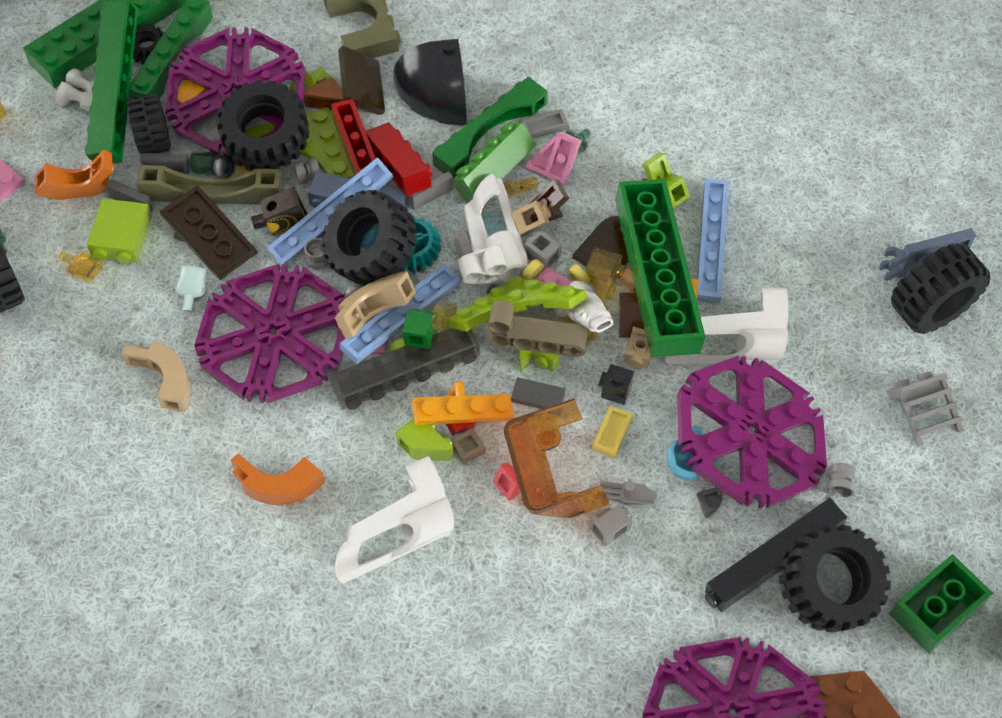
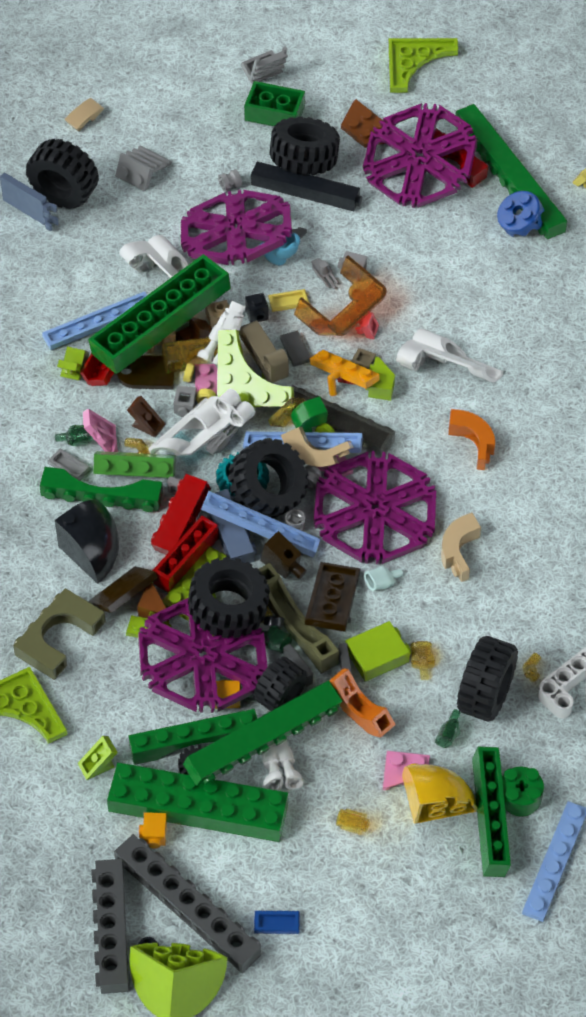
camera: 125 degrees left, 5 degrees down
(523, 217) = (167, 414): tan brick -> none

